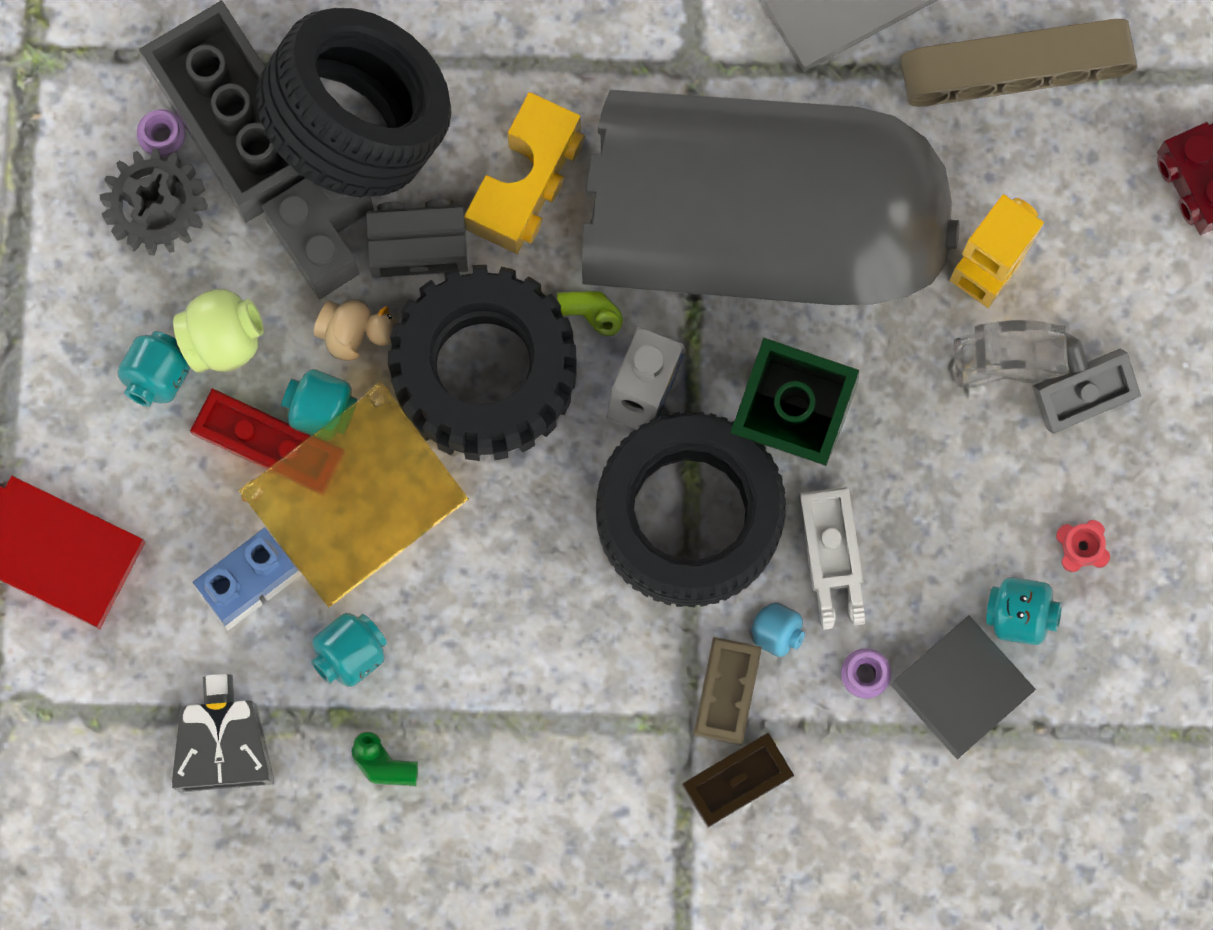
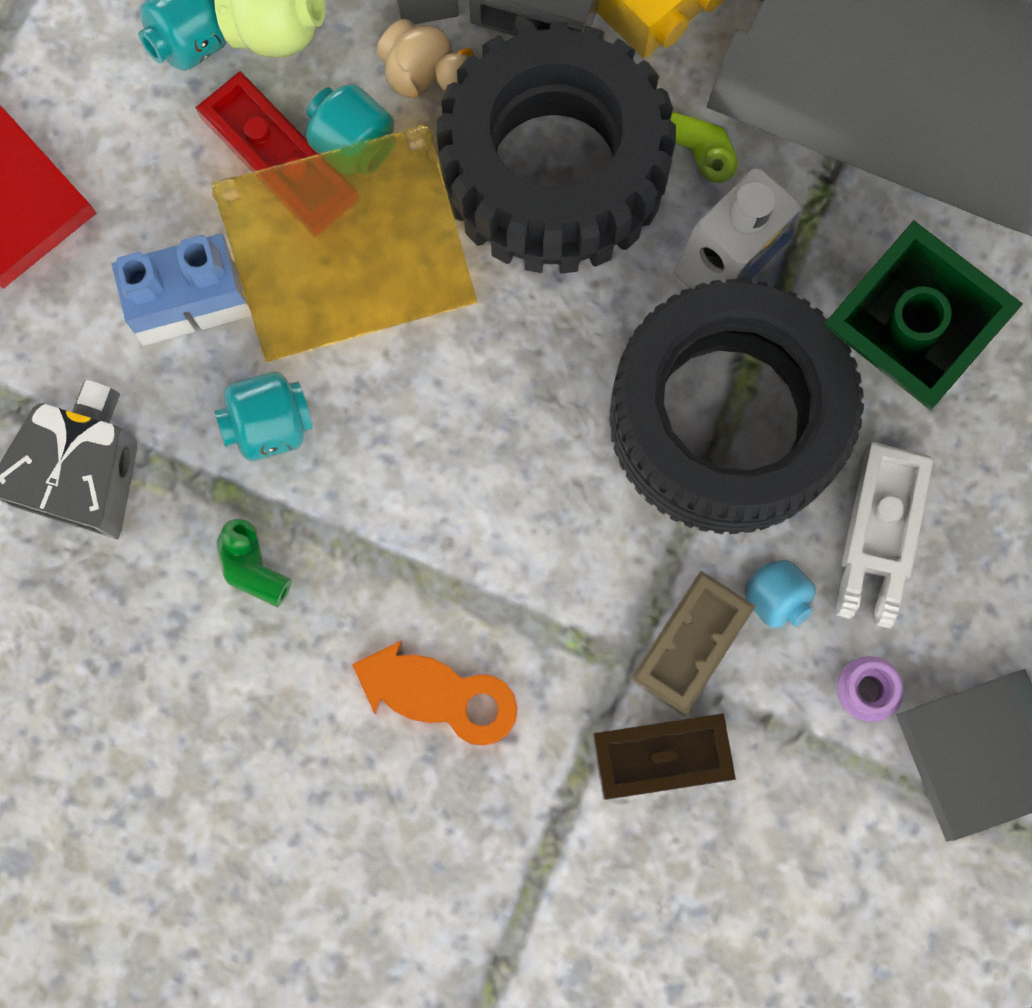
camera: 25 degrees right, 0 degrees up
(556, 802) = (434, 693): none -> orange brick

